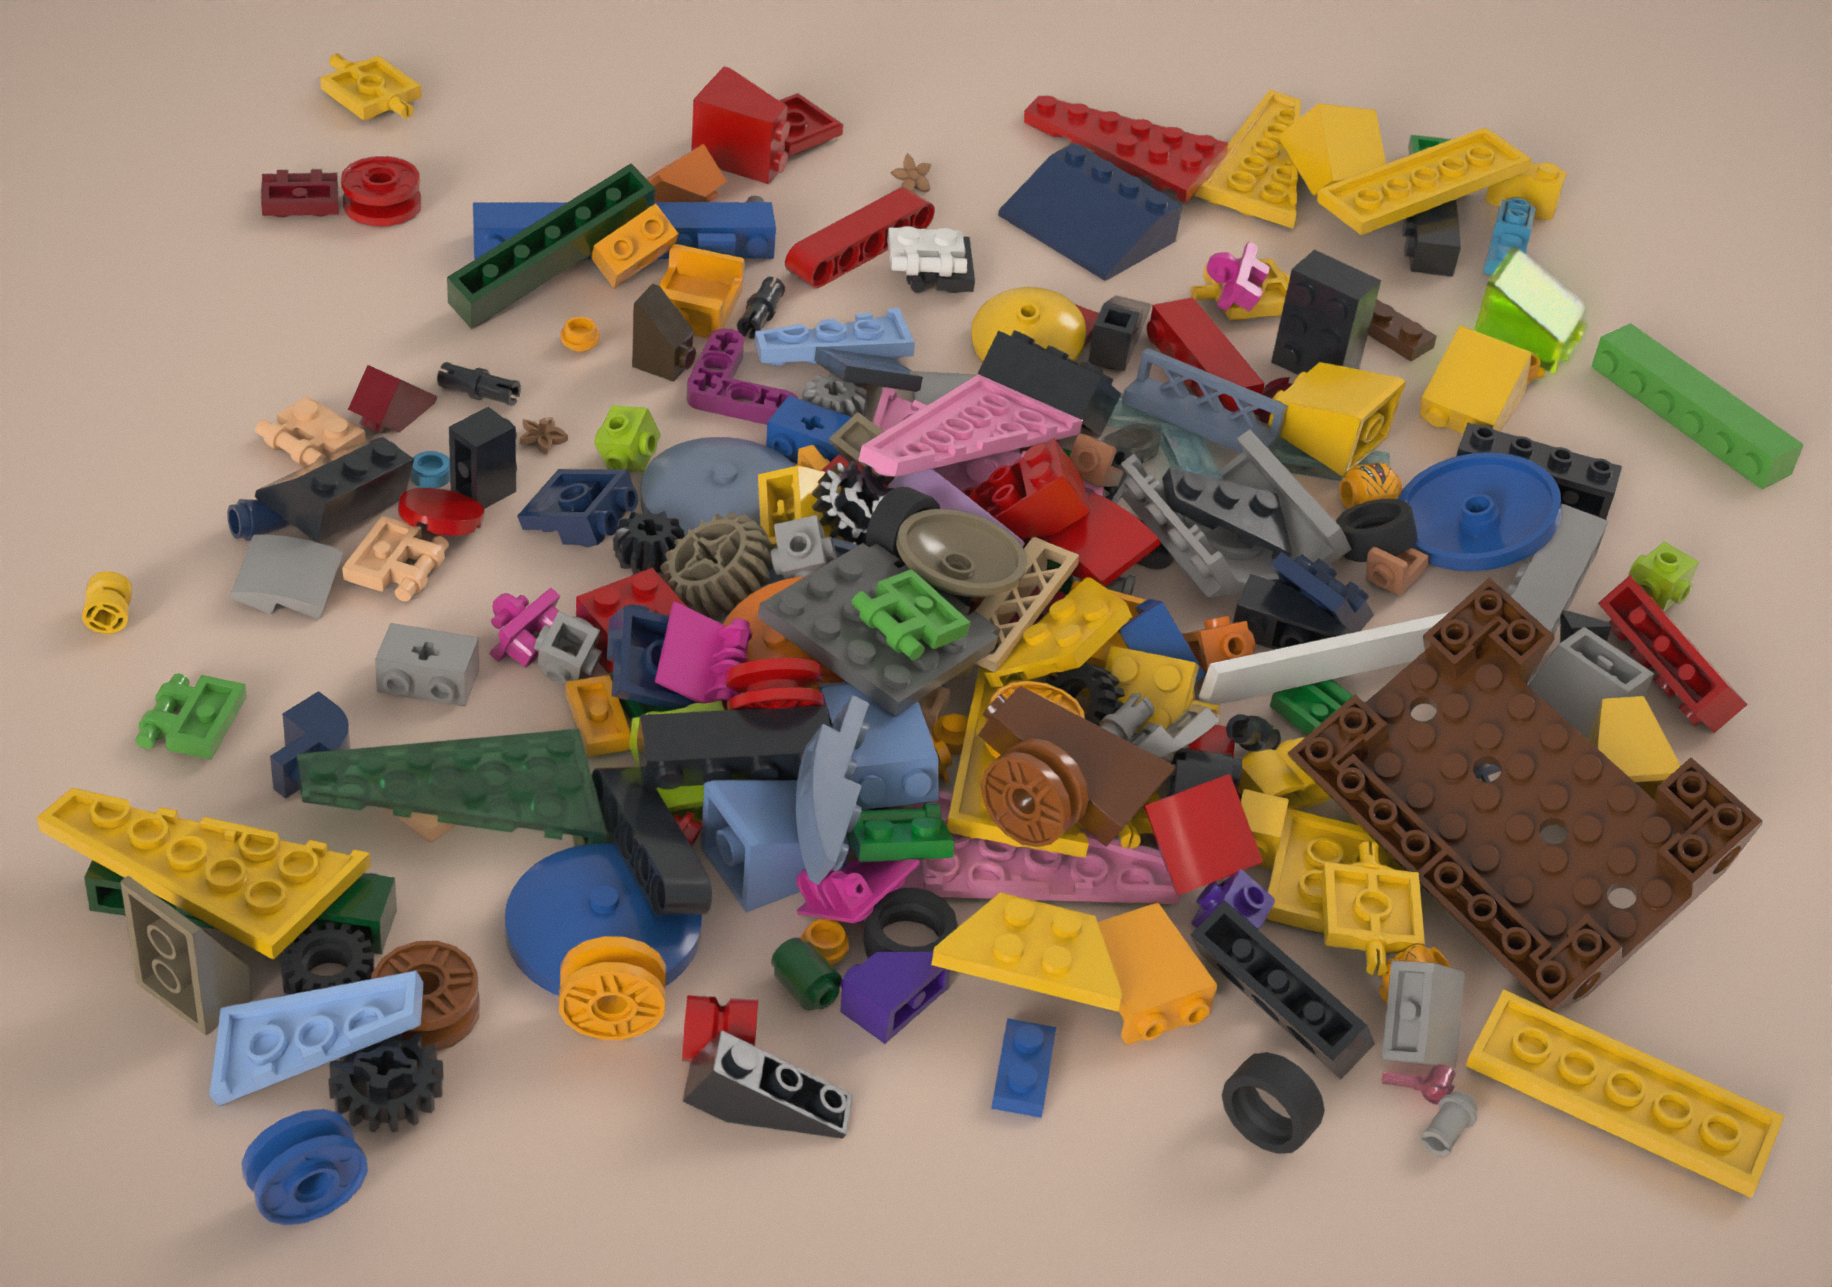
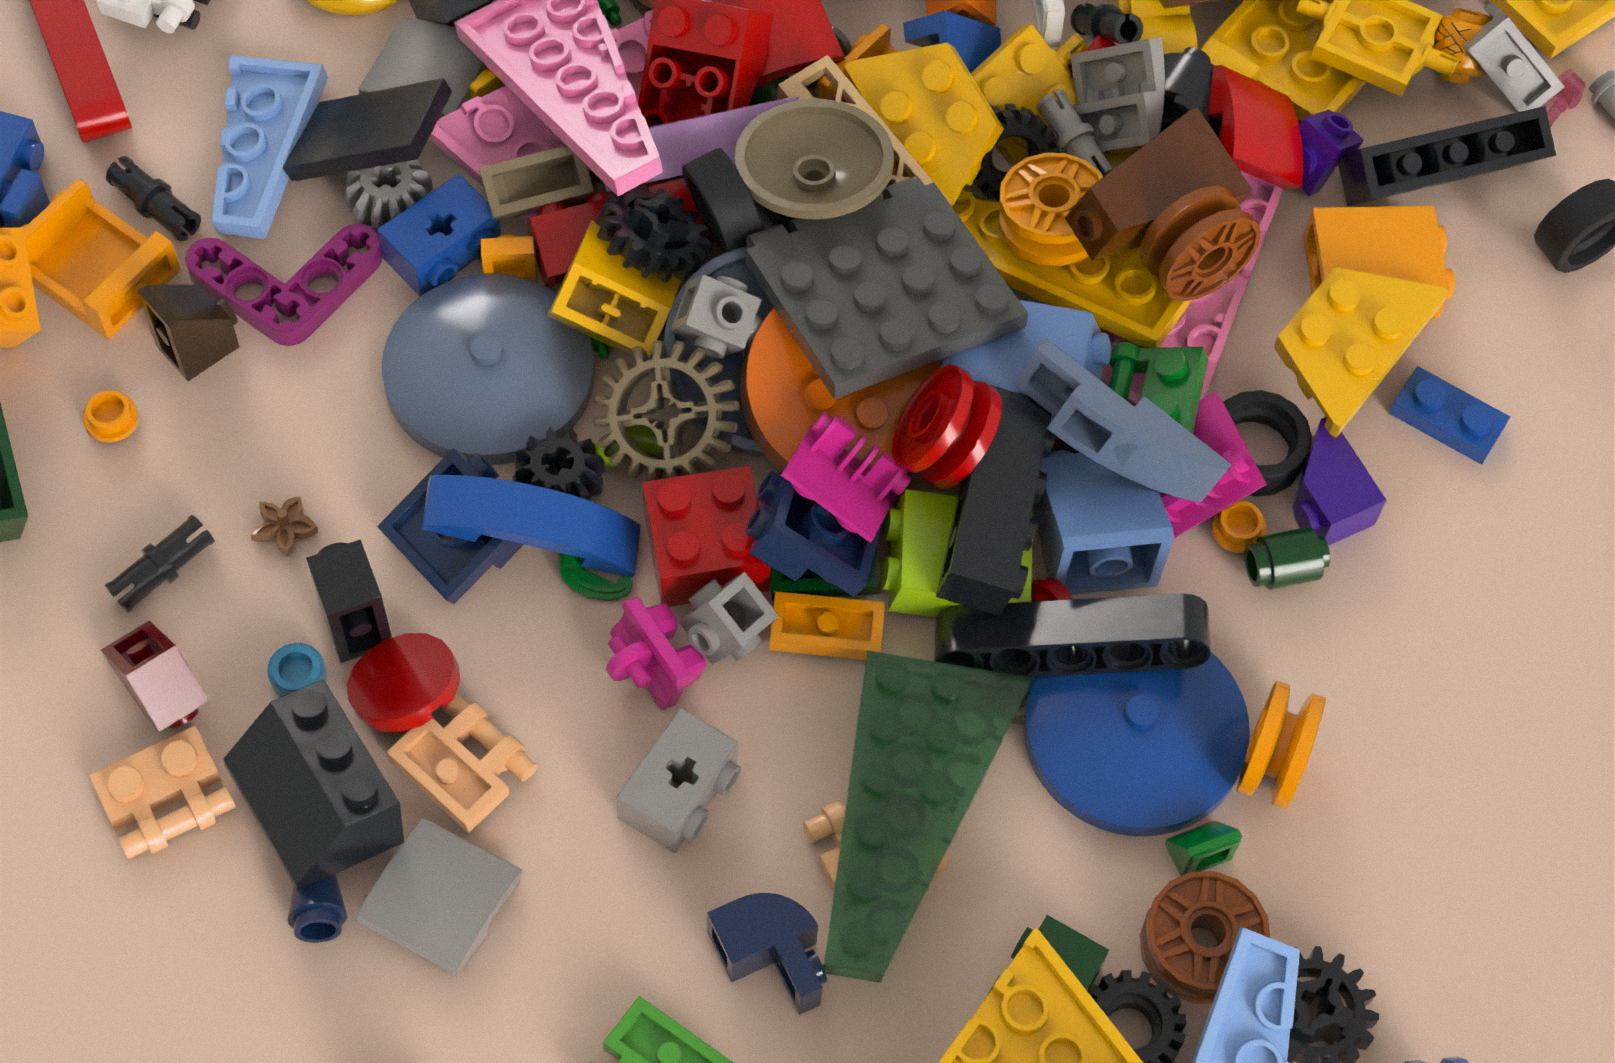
camera: 65 degrees left, 20 degrees up
(508, 984) = (1203, 846): none -> green slope
(574, 583) = (590, 584): none -> green piece
(590, 520) = (533, 517): none -> blue slope
(627, 438) = (359, 415): lime brick -> none
(707, 1018) = (1347, 663): red wheel -> none
(763, 1091) = (1428, 655): black slope -> none
(920, 608) = (911, 232): bright green plate -> none

